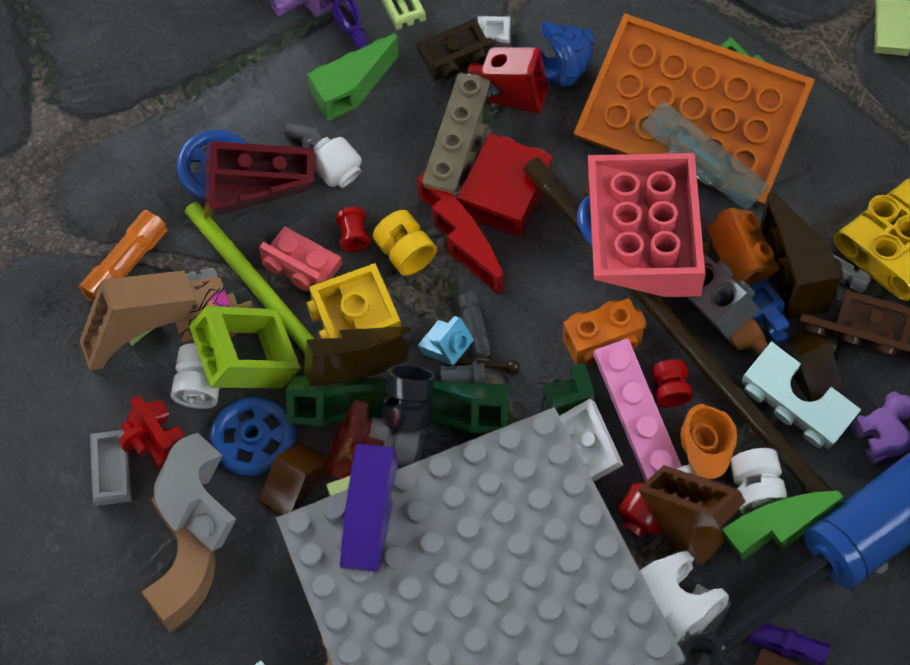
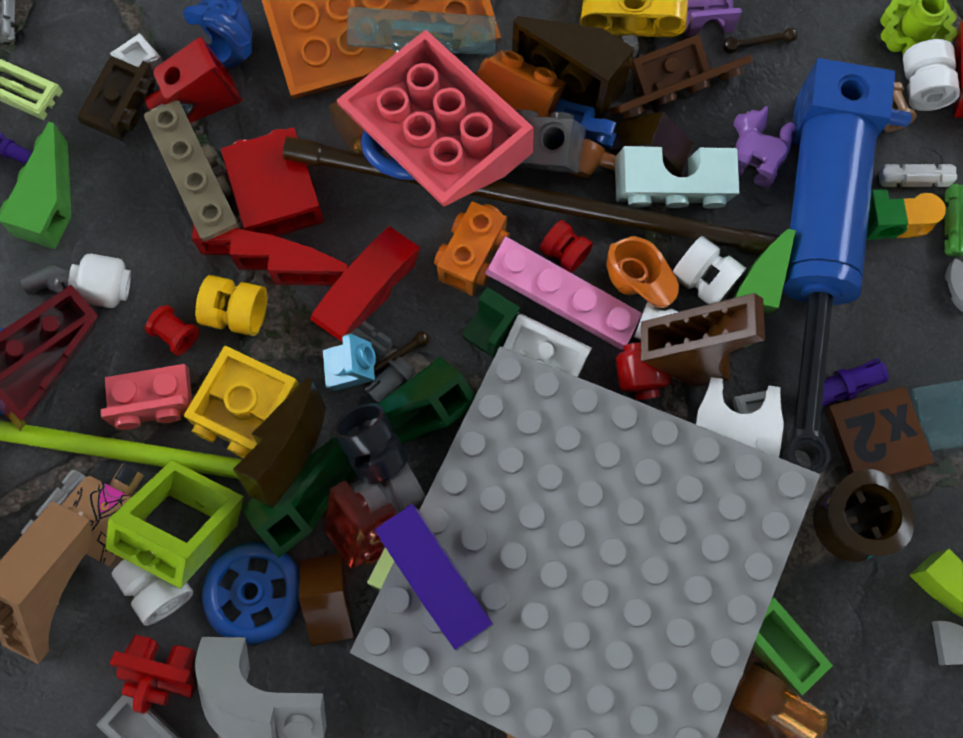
camera: 45 degrees left, 10 degrees up
(507, 297) = (366, 283): none -> red slope

